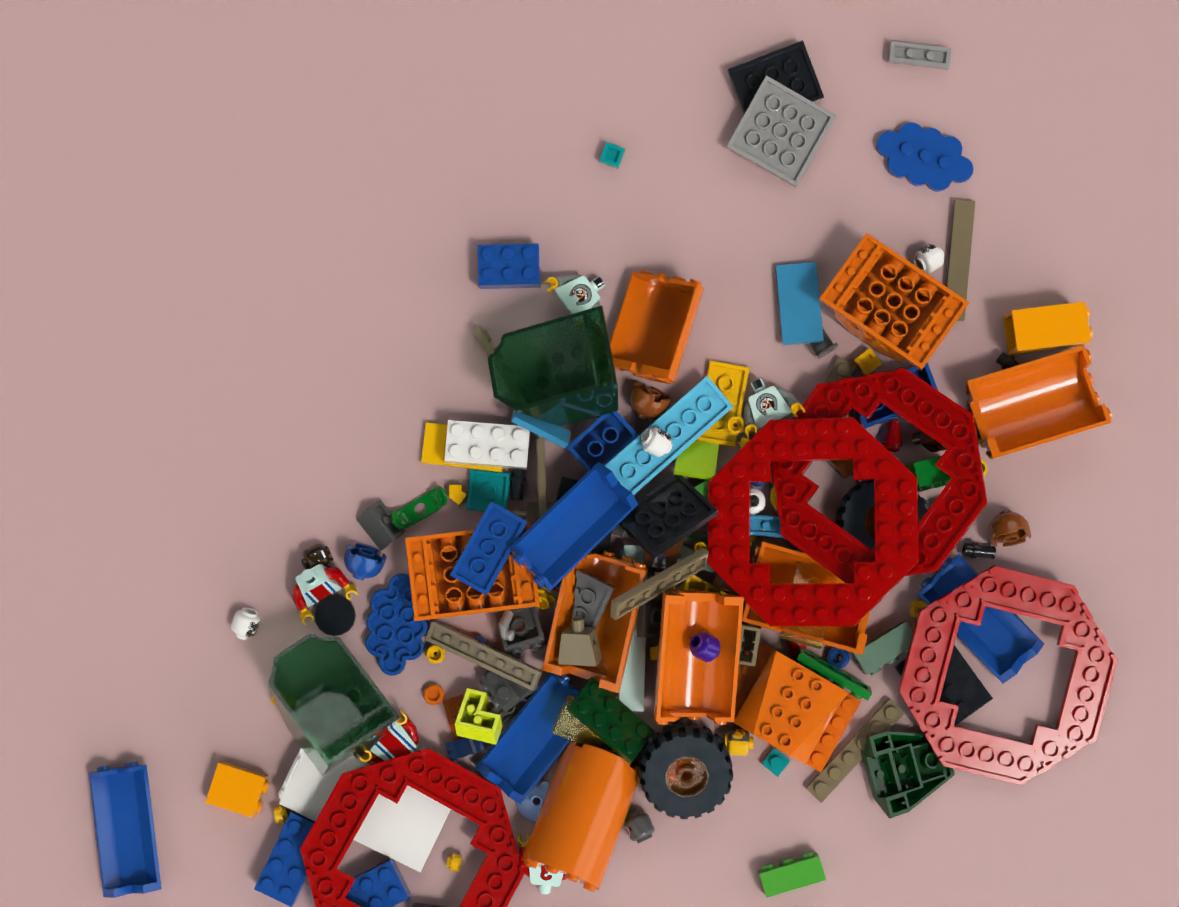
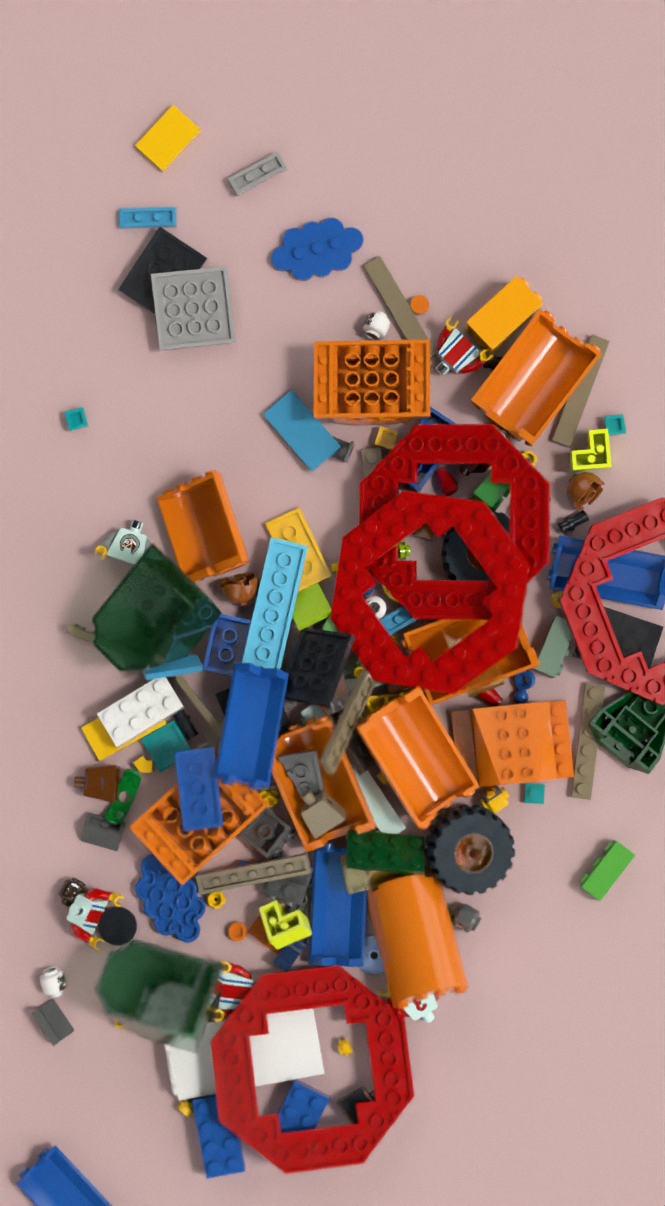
camera: 35 degrees left, 0 degrees up
(220, 657) = (53, 1022): none -> dark grey panel
(237, 789) = (139, 1112): light orange brick -> none
(363, 561) = (110, 868): blue cylinder -> none
(408, 482) = (100, 783): none -> reddish brown torso
(504, 622) = (253, 840): light grey arm -> none
(508, 266) = (58, 561): blue brick -> none
(656, 441) = (268, 615): white head -> none
(704, 646) = (416, 745): dark purple head -> none
(735, 430) = (319, 554): yellow plate -> none
(749, 643) = (449, 718): dark tan torso -> none
(768, 405) = (333, 526): torso -> none
(797, 26) = (147, 217): none -> dark azure tile
(813, 470) = (403, 550): none -> lime plate
(838, 676) = (532, 694): green plate -> none
(979, 267) = (419, 305): none -> orange tile
(983, 332) = (458, 352): none -> torso
(1039, 508) = (597, 455): none -> neon yellow brick
(1056, 449) = (577, 401): none -> dark tan tile
(1075, 492) = (615, 424): none -> teal plate

